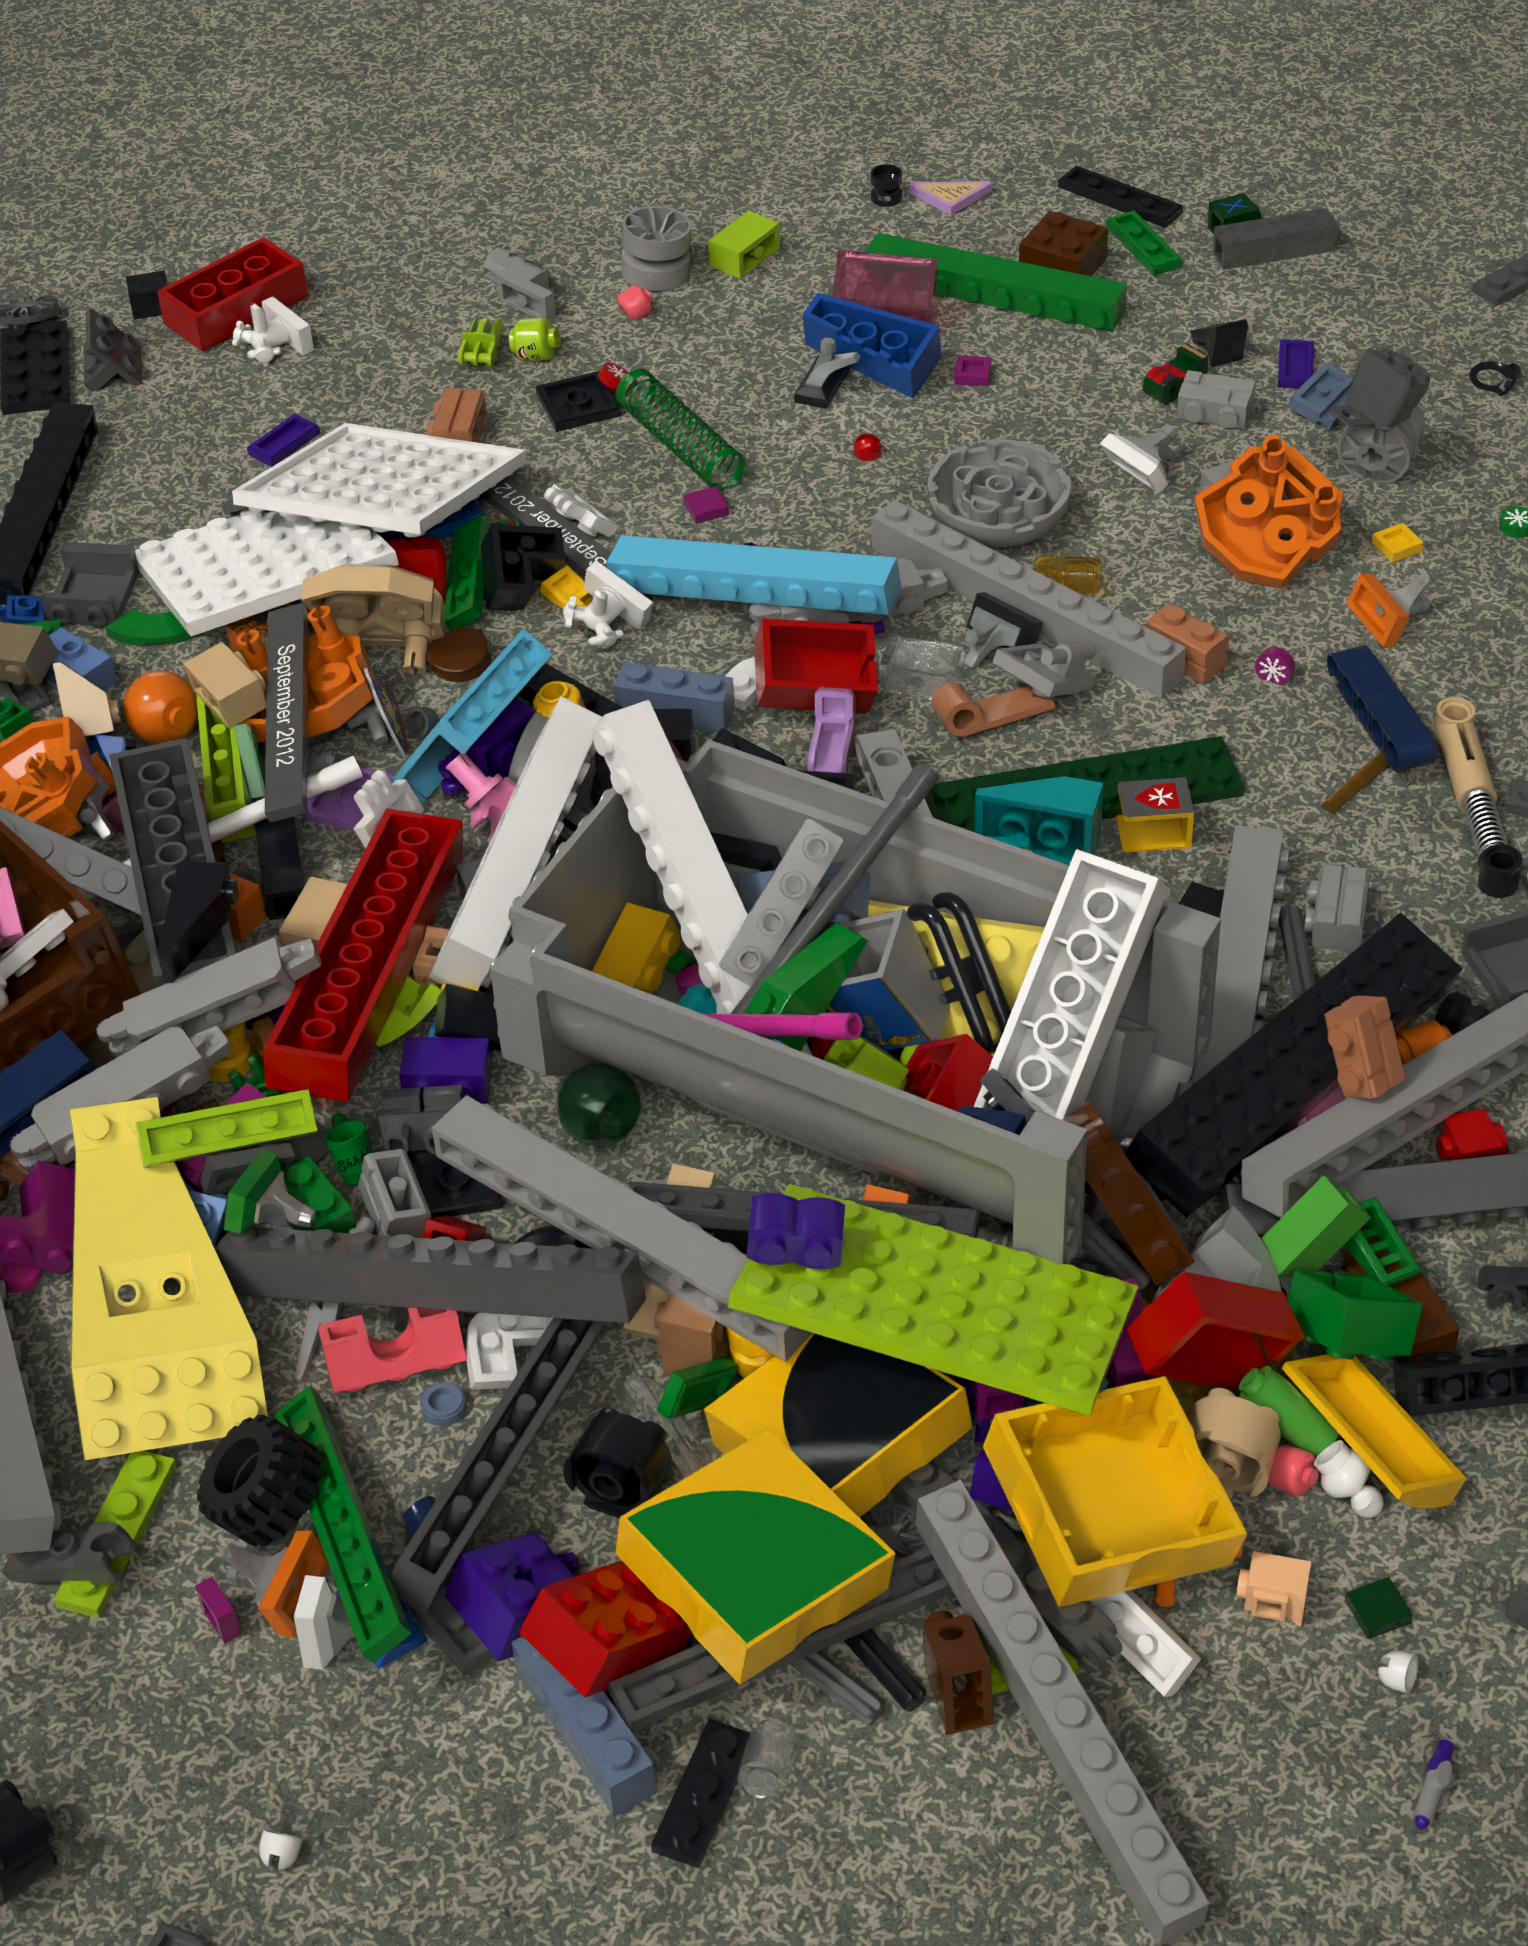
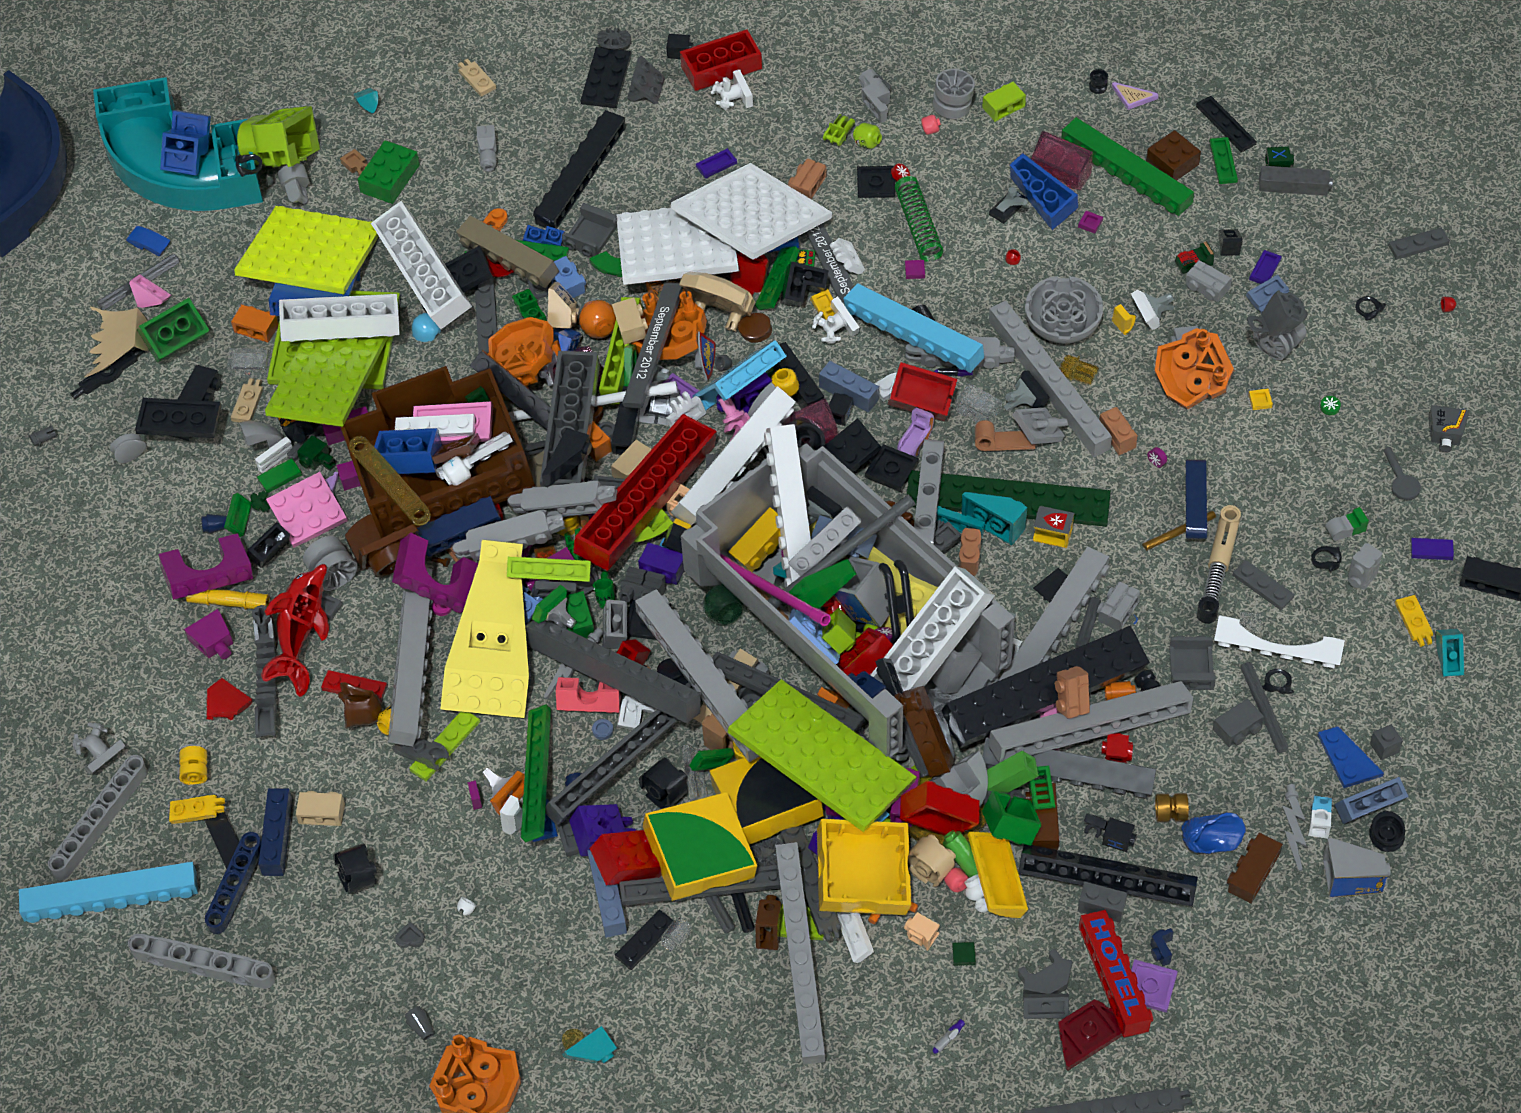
camera: 20 degrees right, 10 degrees up
(259, 1480) = (509, 743): black tyre -> none
(330, 821) = (657, 409): none -> sticker
(796, 1231) = (767, 707): dark purple brick -> none
(1103, 484) = (1123, 319): none -> yellow tile
(1386, 610) = (1231, 439): orange piece -> none
(1400, 1670) = (958, 984): white hinge -> none

